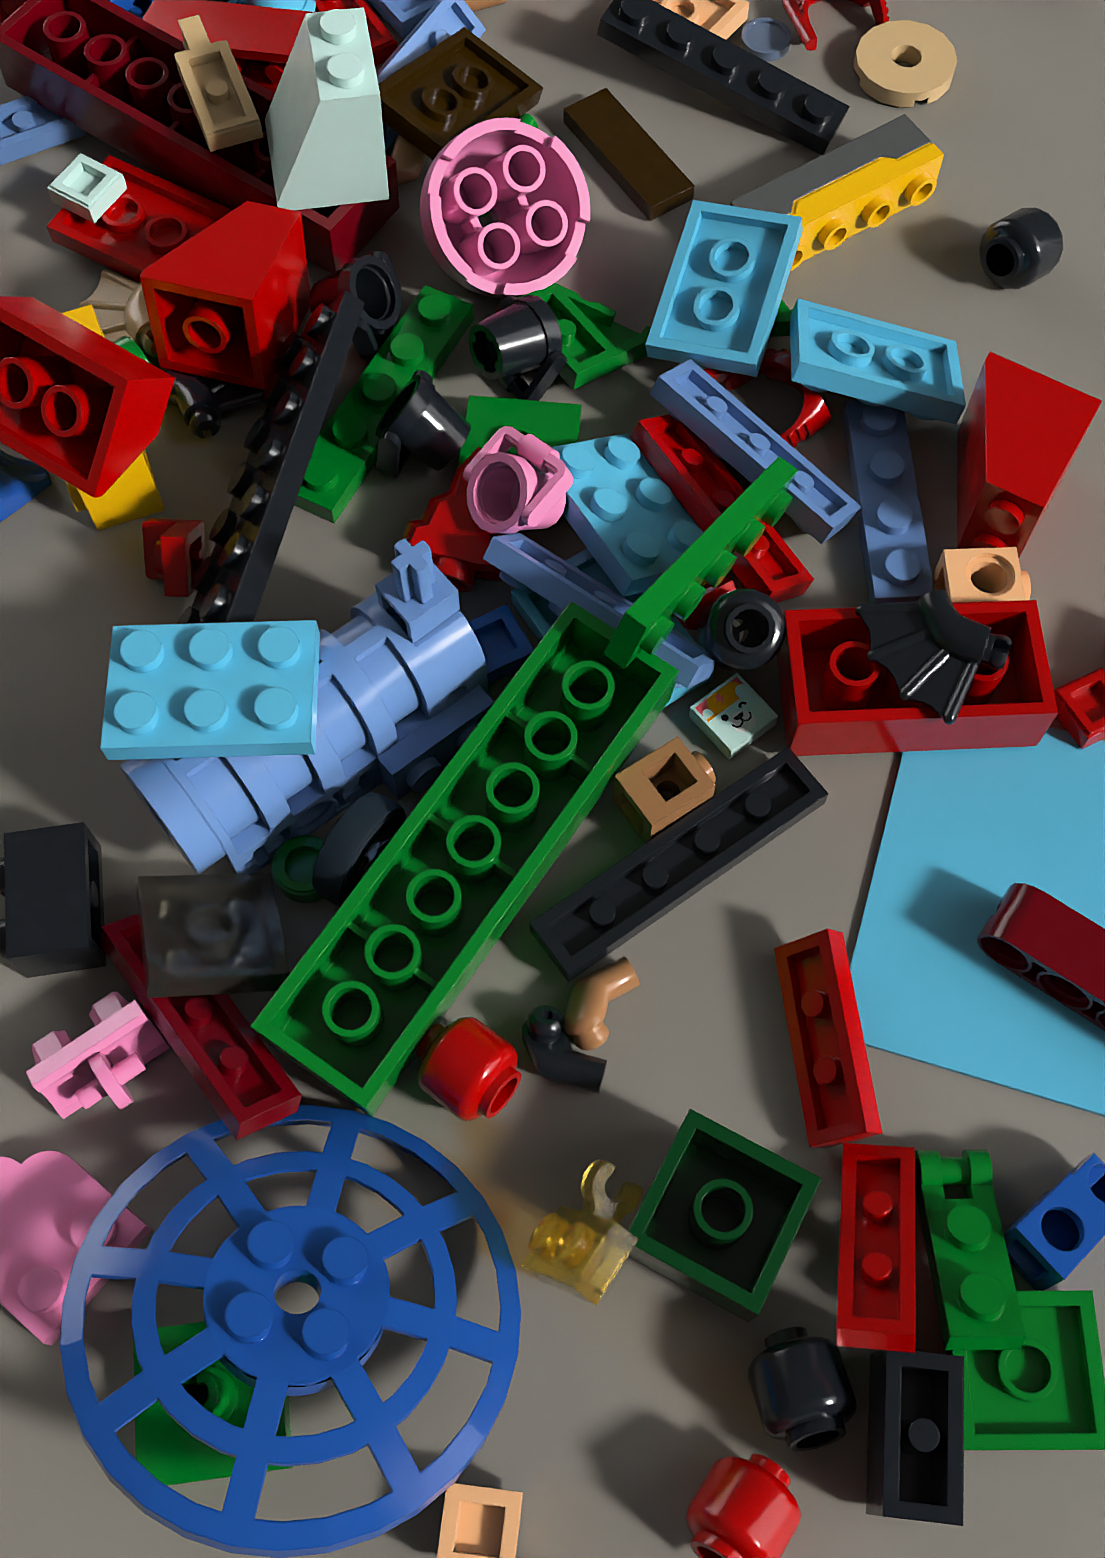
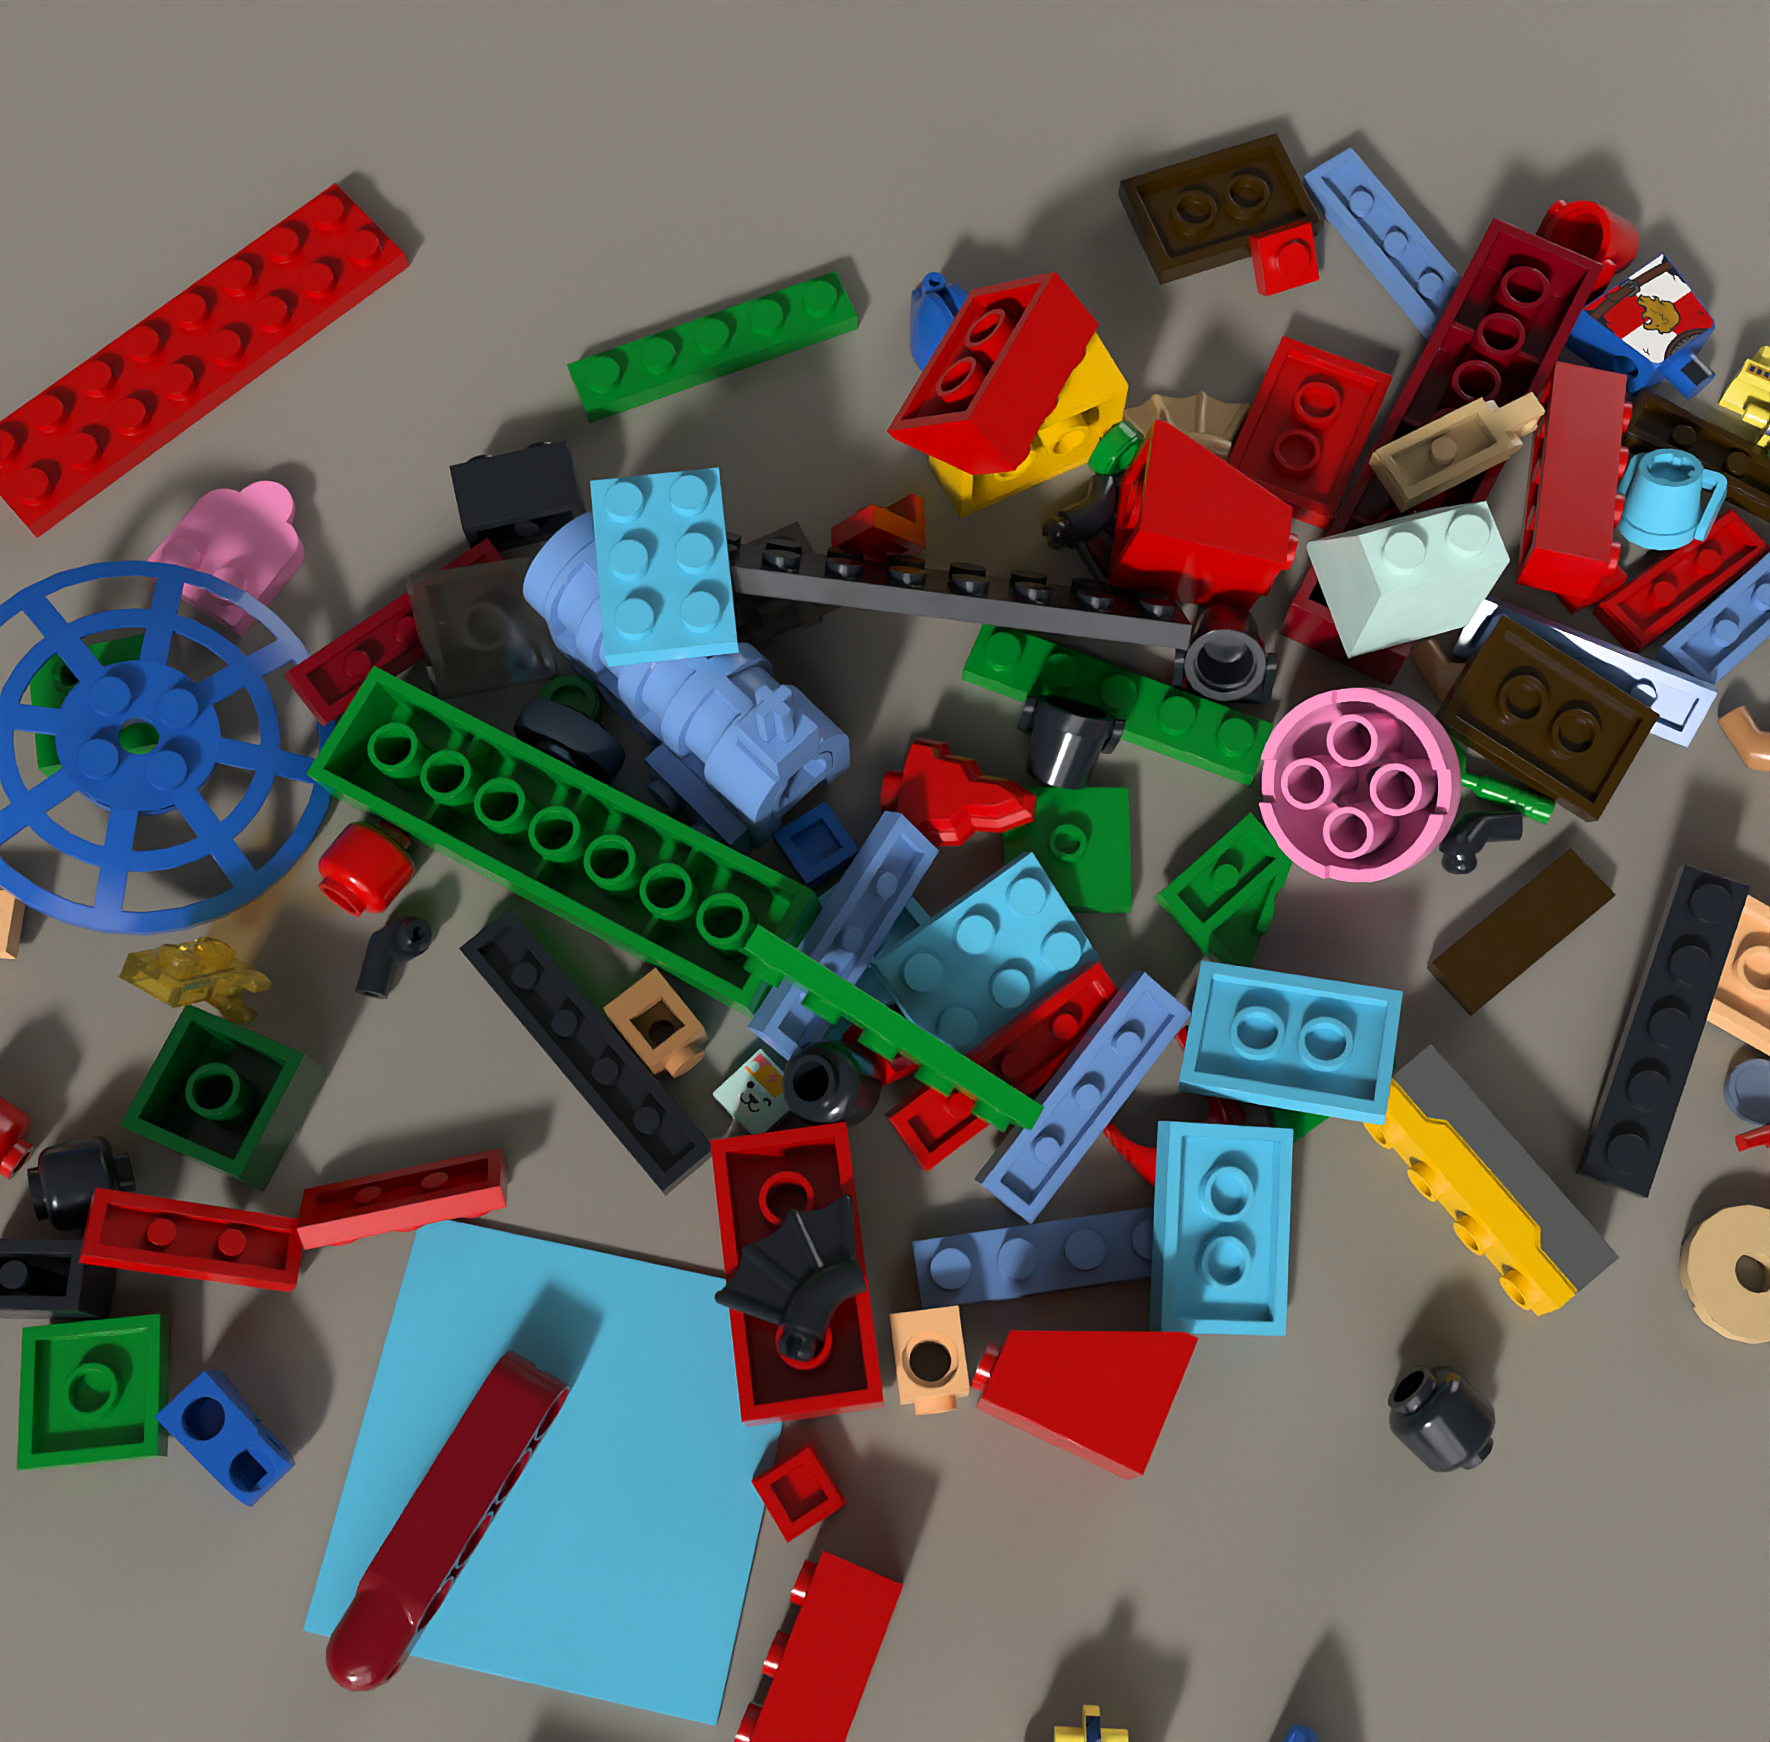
camera: 85 degrees right, 5 degrees up
(87, 188) = (1334, 362): light aqua tile -> none
(98, 1061) = (365, 560): bright pink hips -> none
(508, 491) = (962, 833): bright pink piece -> none
(517, 340) = (1185, 823): black piece -> none
(590, 1001) = (442, 974): medium nougat arm -> none
(967, 1253) = (196, 1332): green plate -> none

